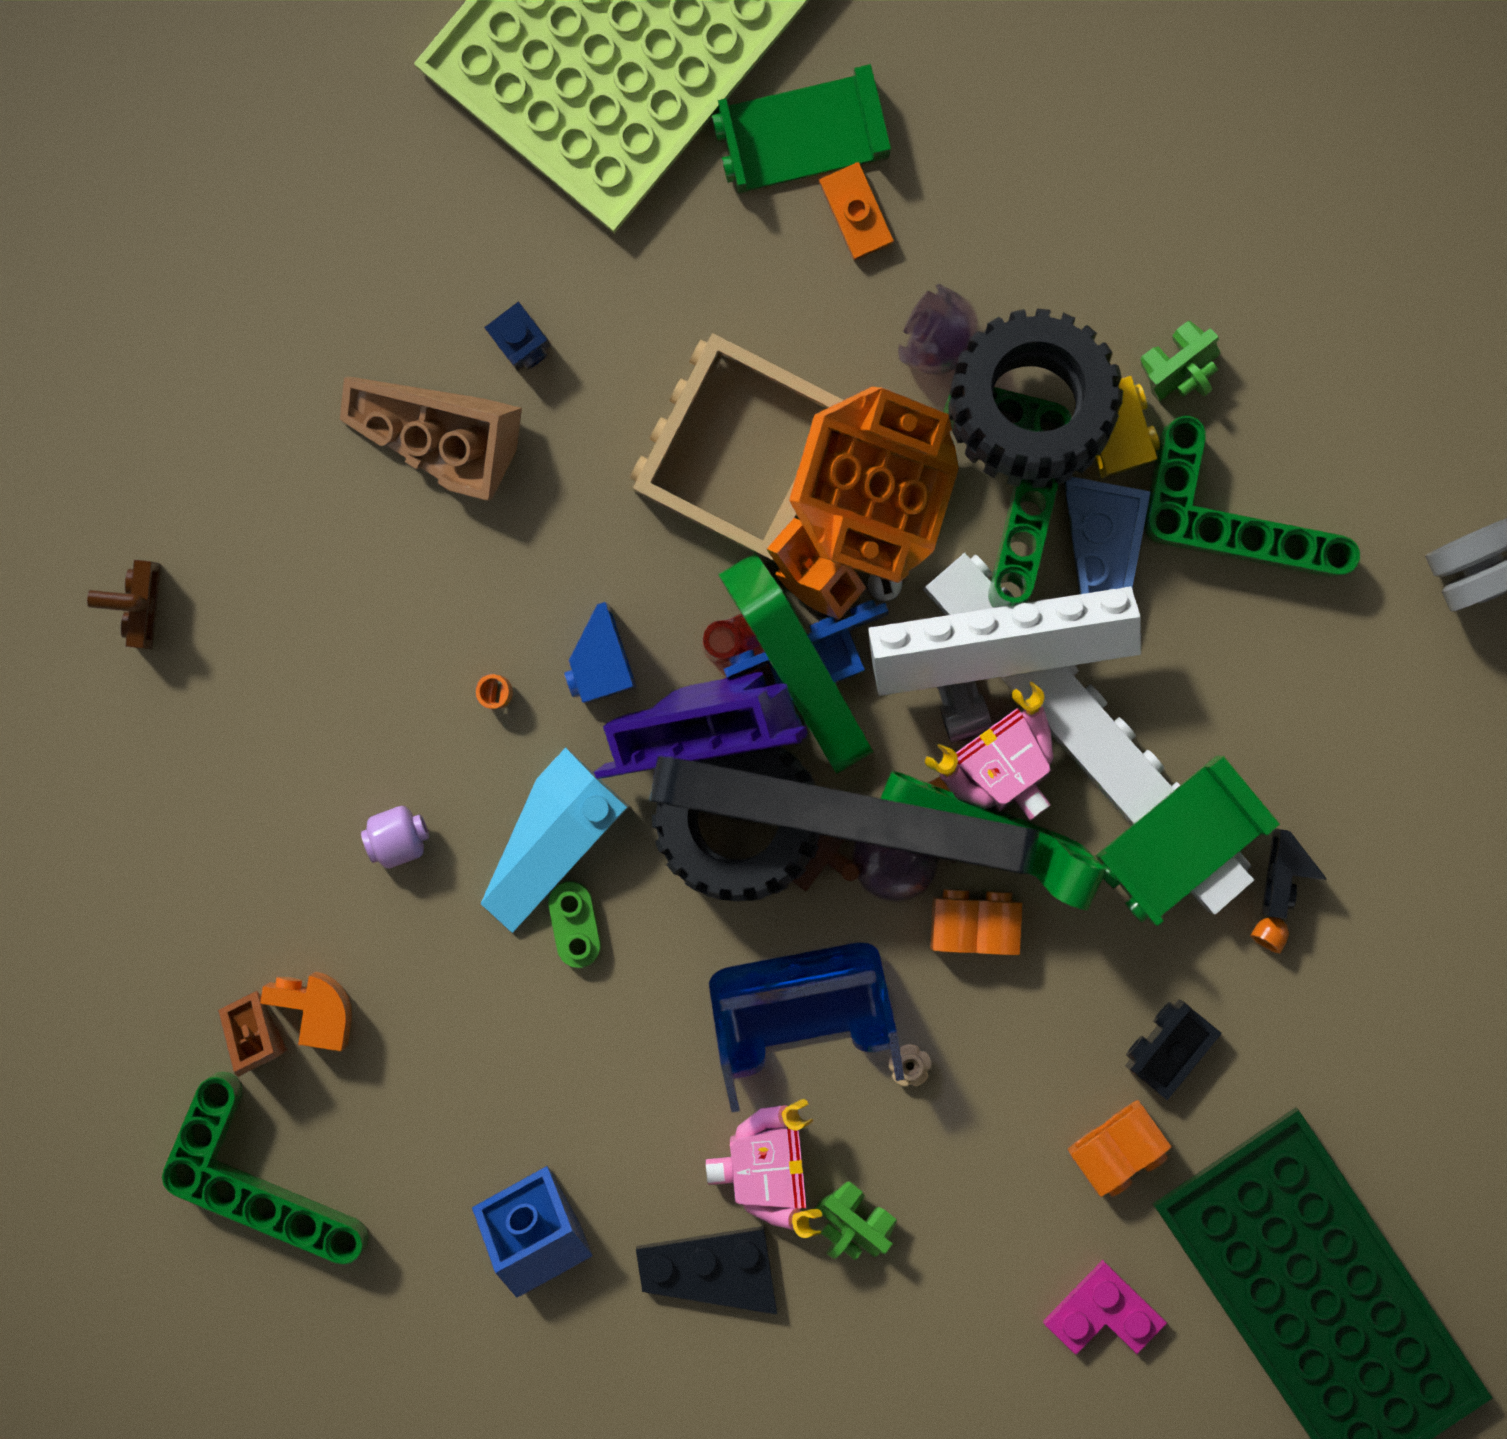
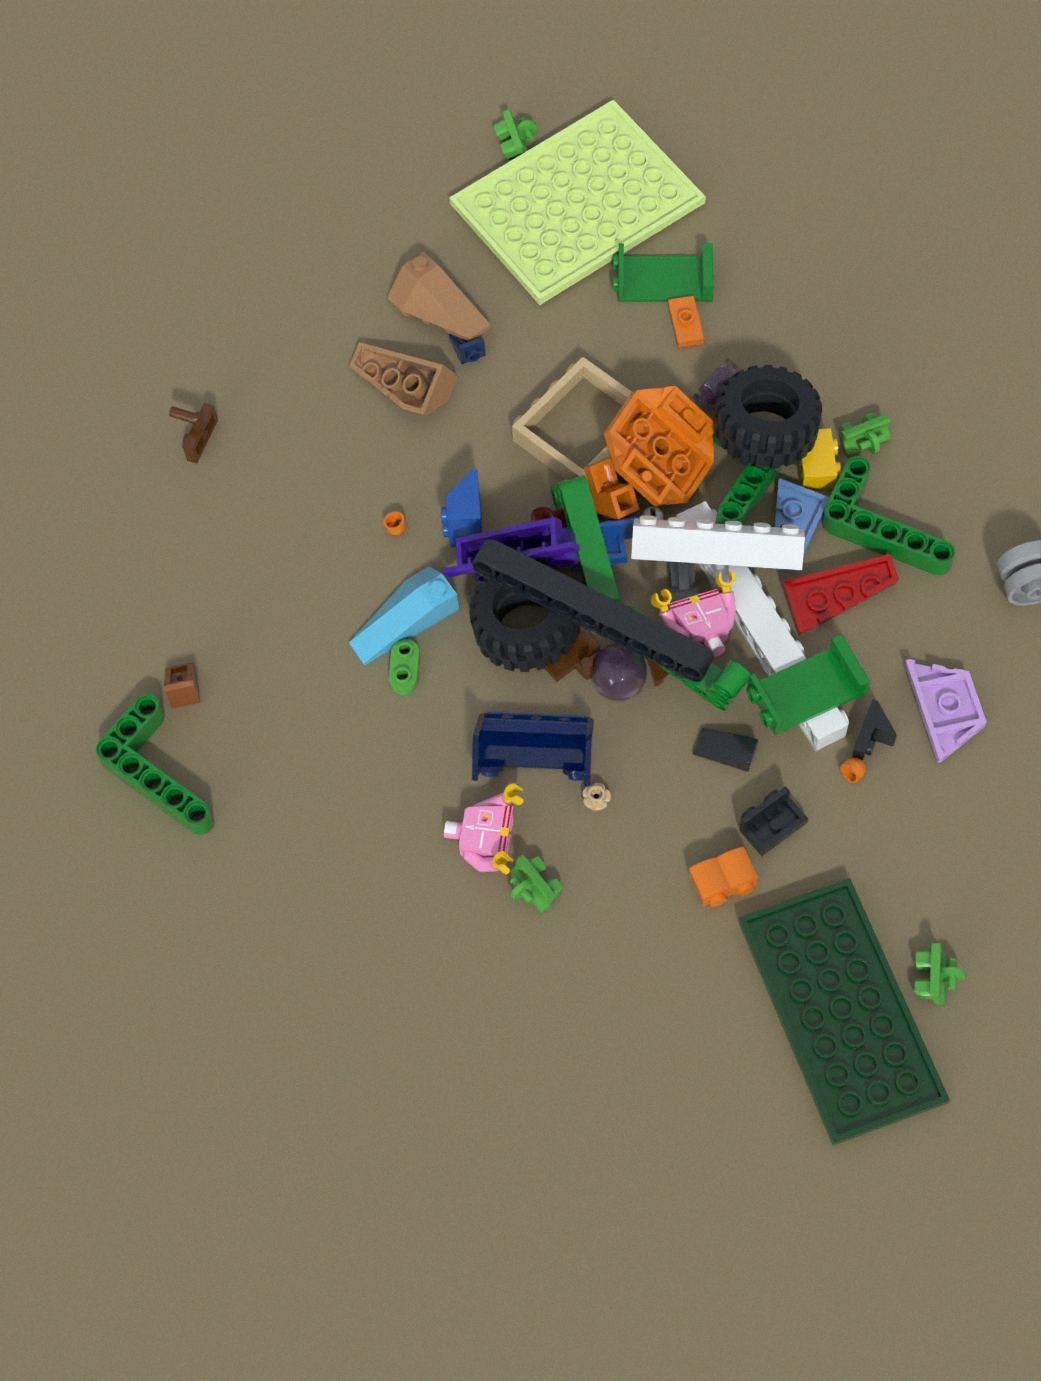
camera: 20 degrees right, 25 degrees down
(324, 1007) = (229, 673): orange brick -> none
(395, 837) = (308, 589): lavender head -> none
(437, 270) = (431, 295): none -> medium nougat wedge
(531, 1232) = (320, 841): blue slope -> none
(711, 1269) = (434, 894): black wing -> none
(976, 924) = (661, 719): orange brick -> none
(1079, 944) = (726, 748): none -> black slope
(1104, 1300) = (692, 977): dark pink plate -> none
(1193, 646) = (833, 591): none -> red wing
(1386, 801) = (946, 706): none -> lavender wing
(1444, 1241) = (935, 961): none -> bright green hips

